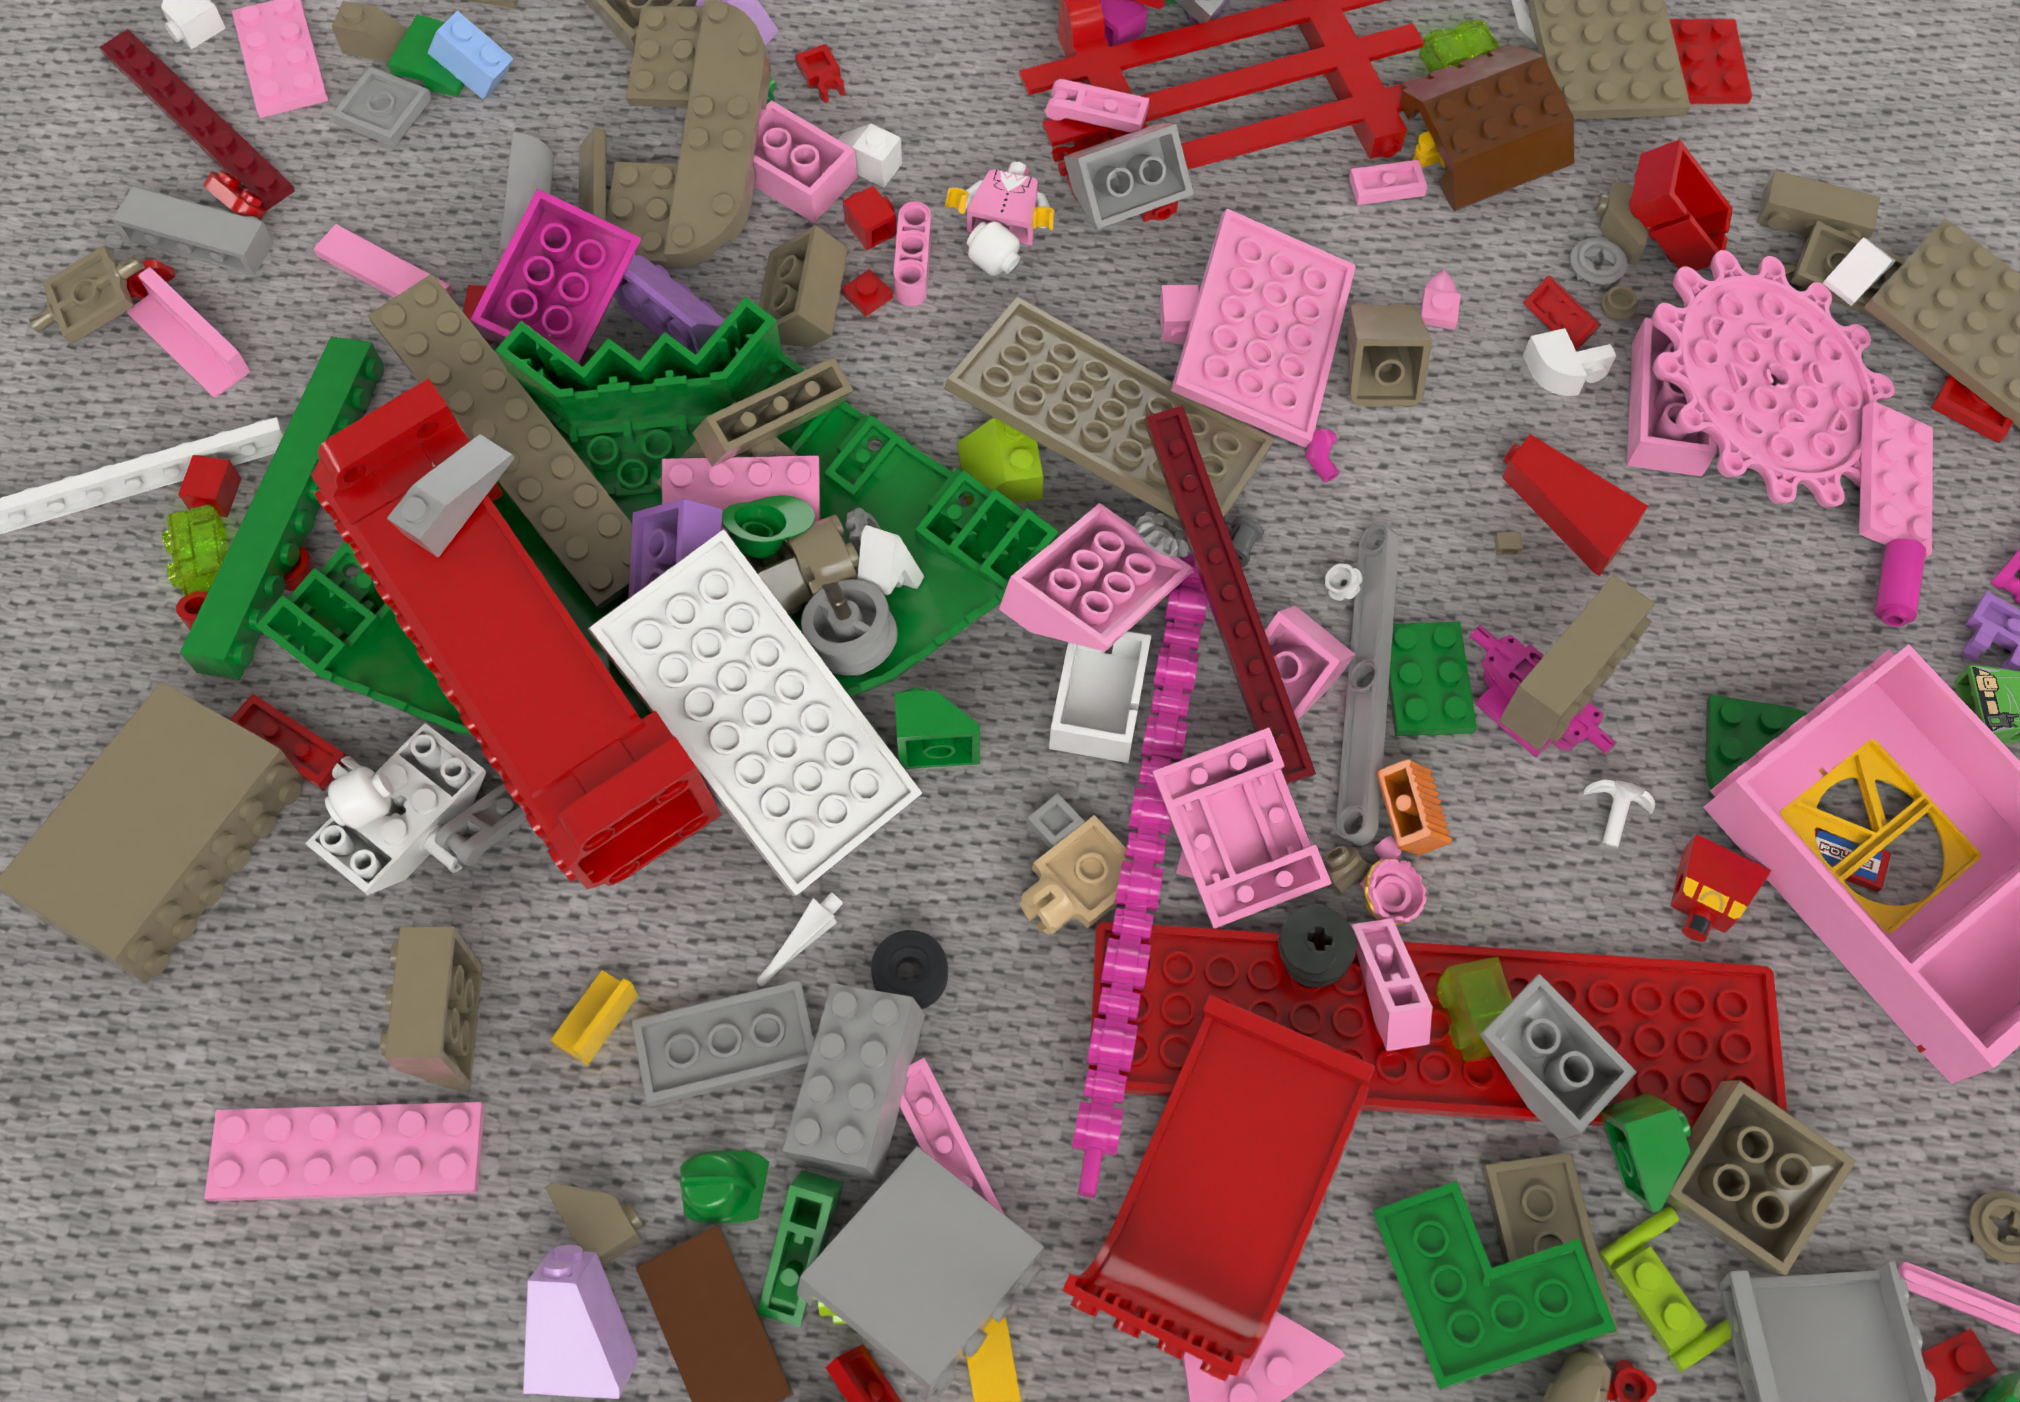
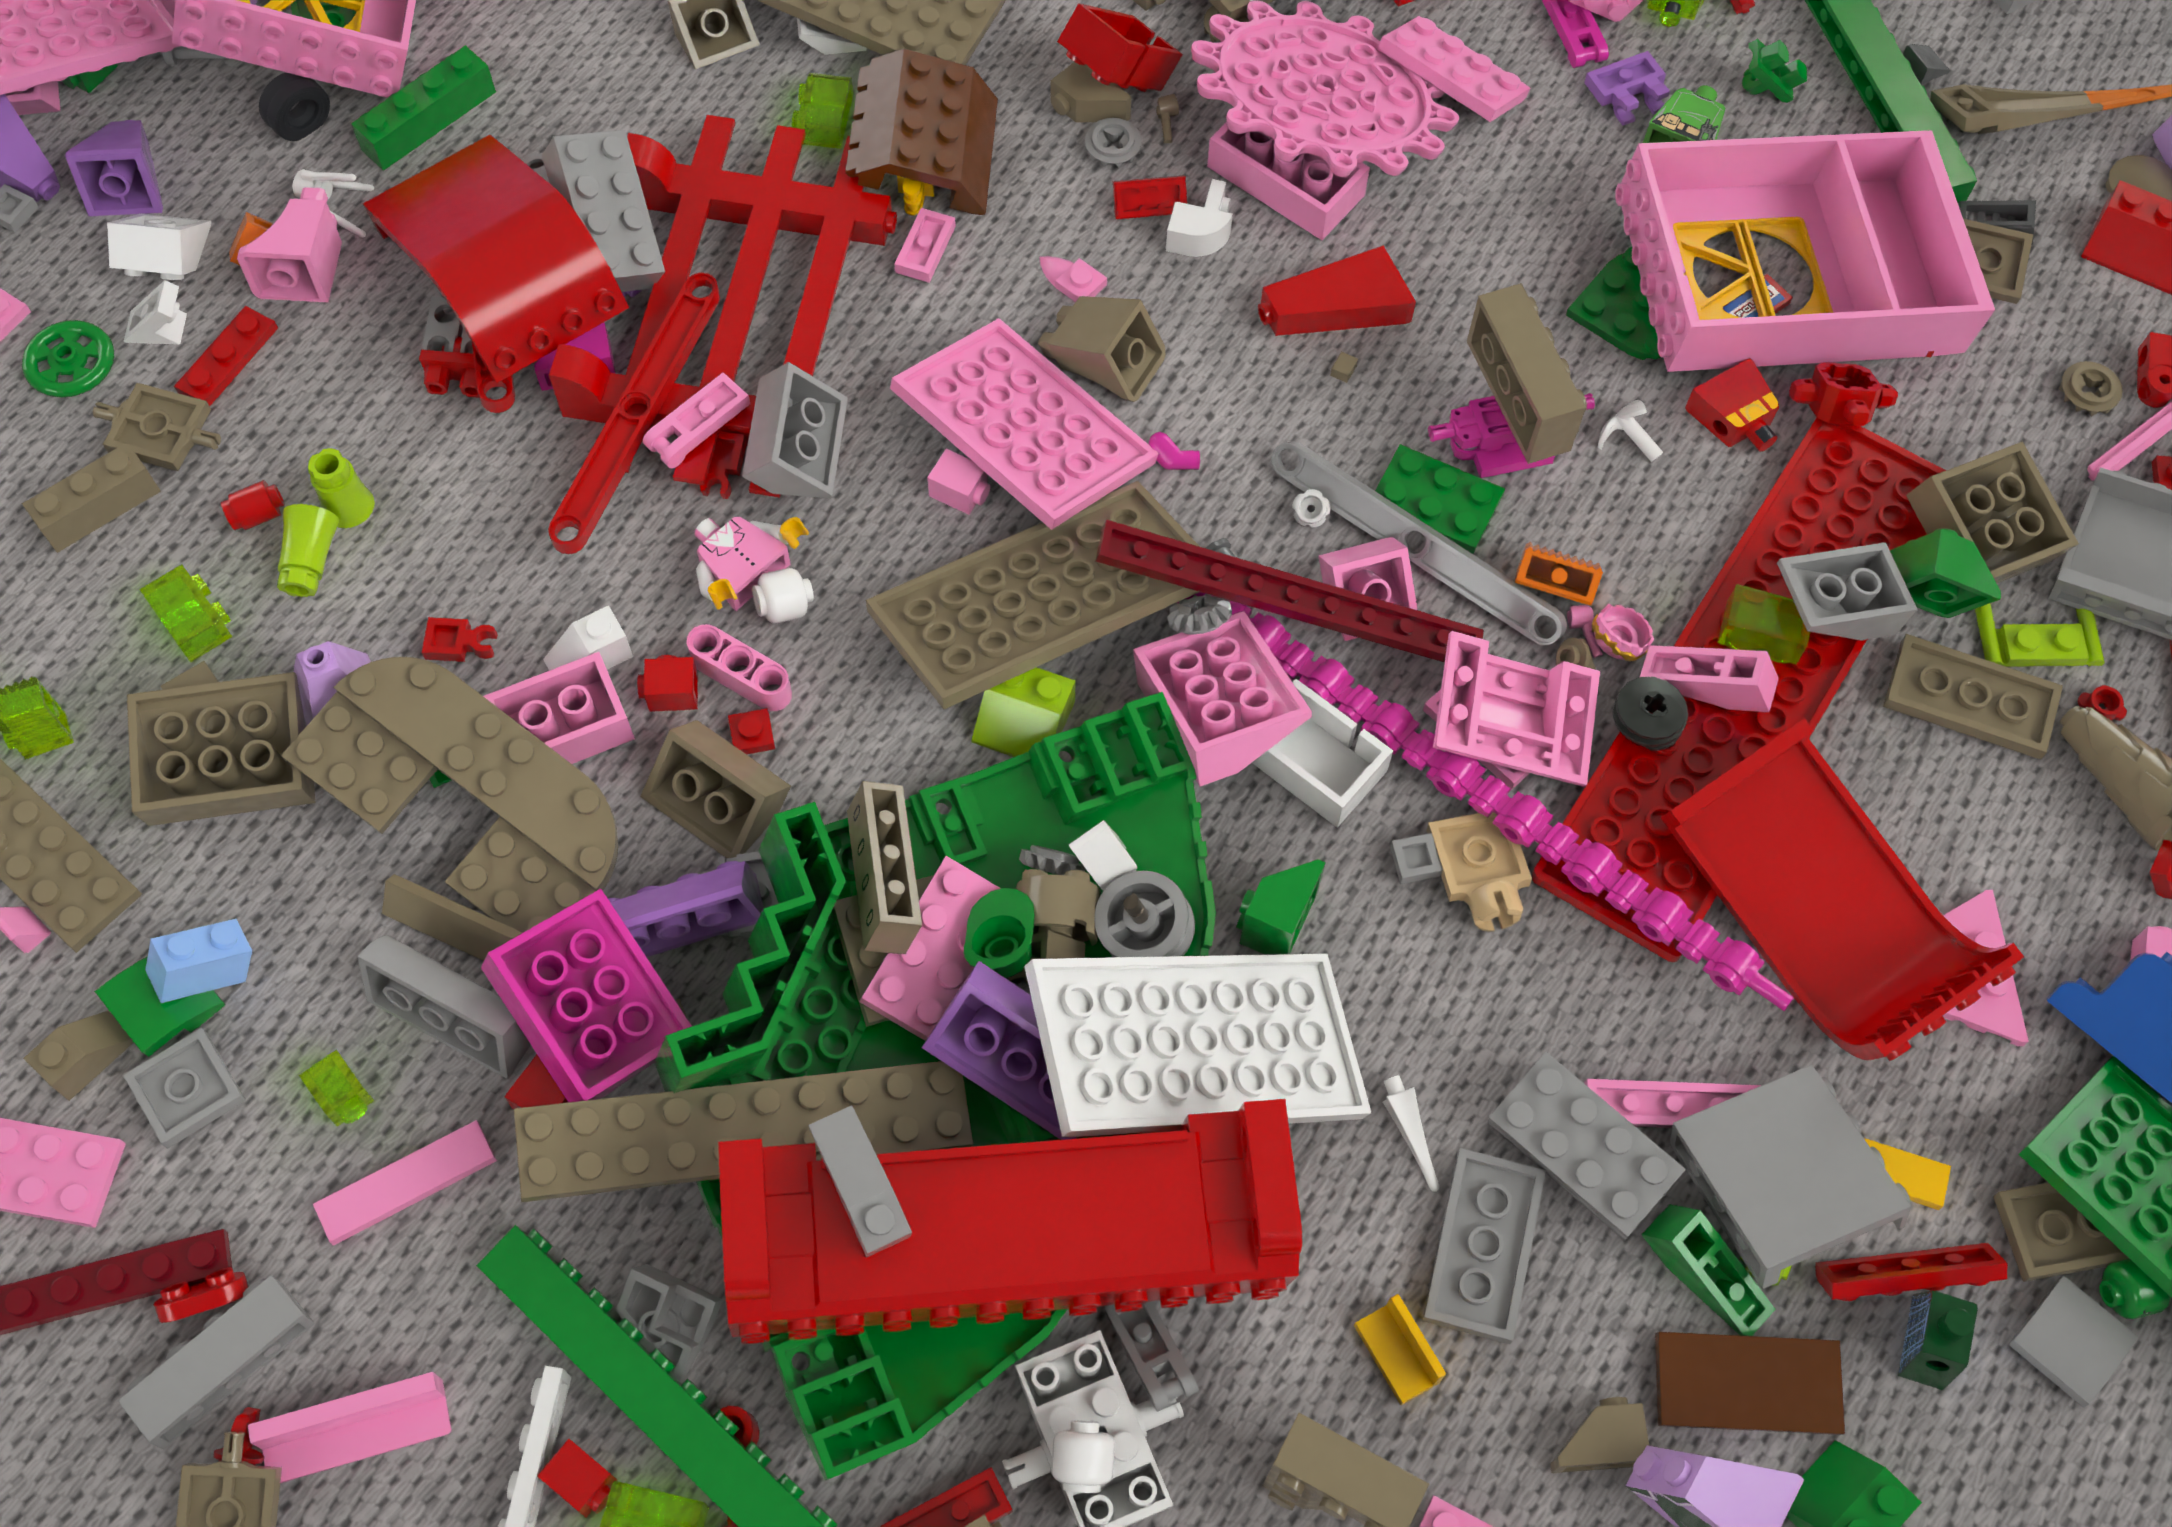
camera: 60 degrees left, 0 degrees up
(426, 189) = (337, 1089): none -> clear neon green brick
(723, 1186) = (1615, 1315): green piece -> none
(911, 946) = (1499, 1028): black tyre -> none
(1105, 65) = (624, 433): none -> red beam
(1480, 1315) = (2006, 774): green plate -> none
(1619, 303) = (1164, 151): dark tan plate -> none
(1663, 283) = (1166, 108): none -> dark tan hand
(1799, 976) = (1843, 393): none -> red piece
(1900, 582) = (1545, 123): dark pink brick -> none

